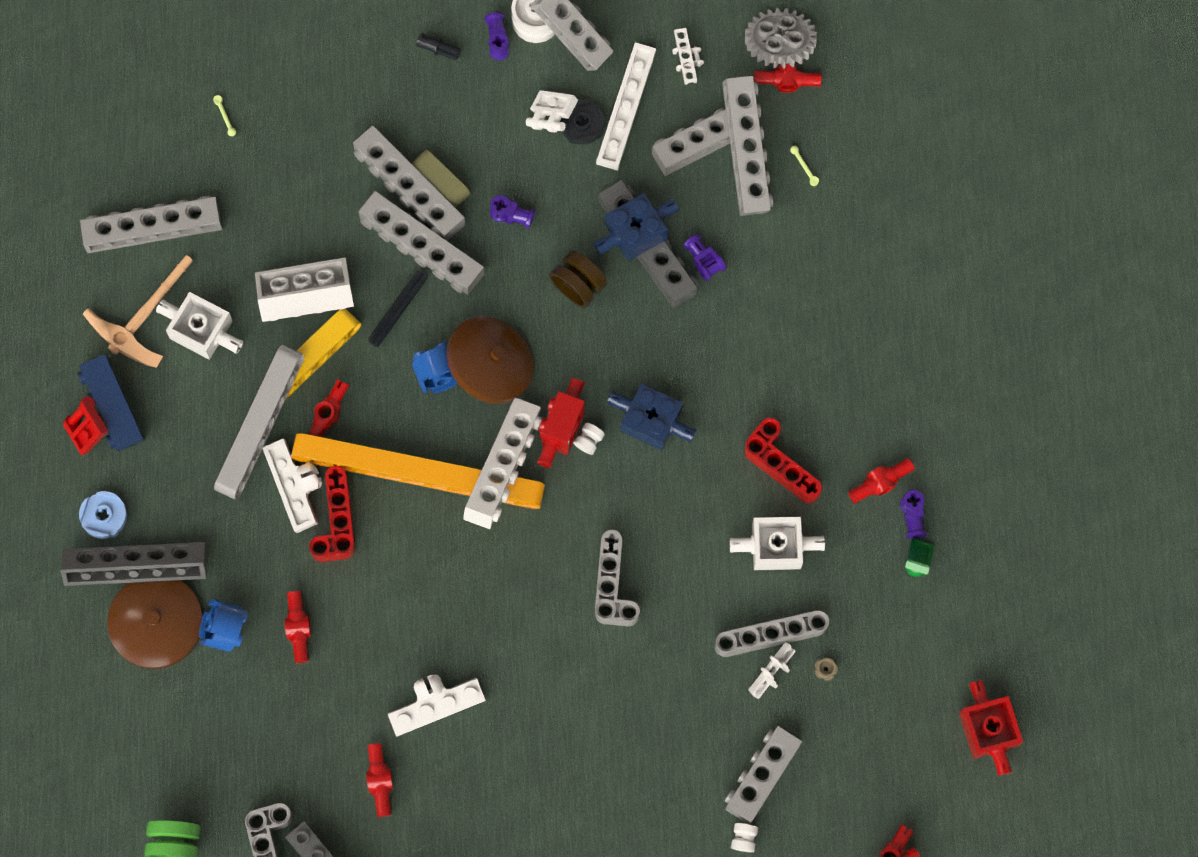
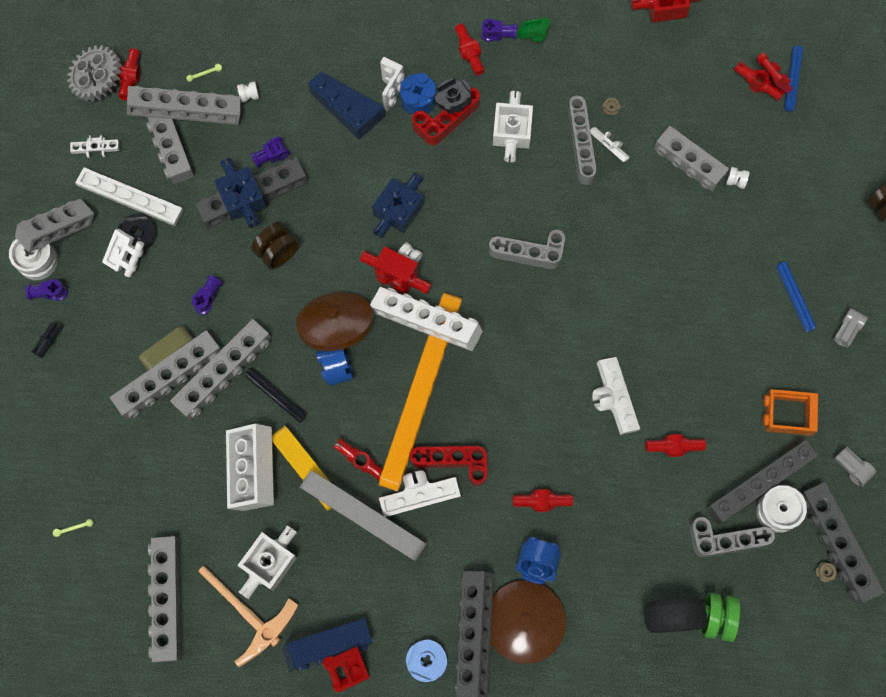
camera: 80 degrees left, 0 degrees up
(168, 786) = (675, 615): none -> black tyre
(777, 340) = (350, 107): none -> dark blue wedge
(781, 218) = (247, 92): none -> white wheel
(796, 471) = (454, 103): none -> black plate
(810, 411) = (418, 93): none -> blue brick
(815, 394) = (393, 76): none -> white bracket

